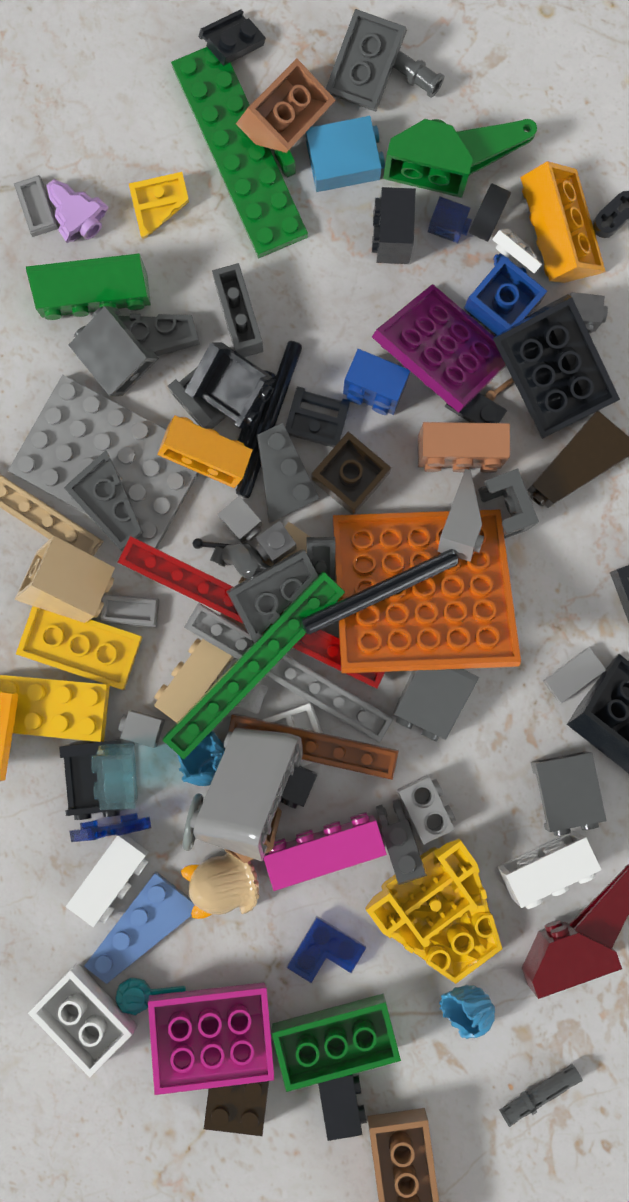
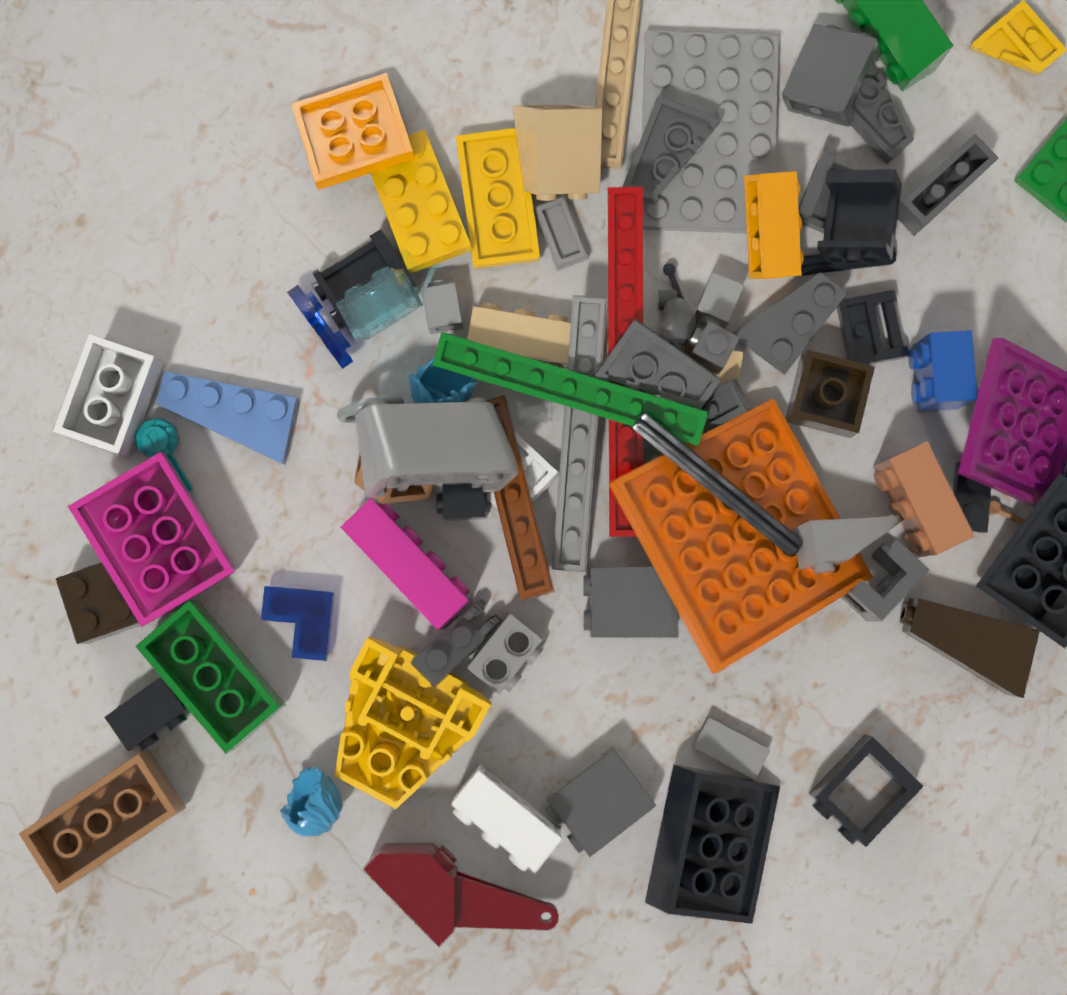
camera: 65 degrees right, 0 degrees up
(108, 880) = (266, 352): white brick -> none
(221, 886) = (317, 473): tan hair -> none
(270, 414) = (848, 277): black axle -> none
(540, 1095) = (254, 924): dark grey pin -> none

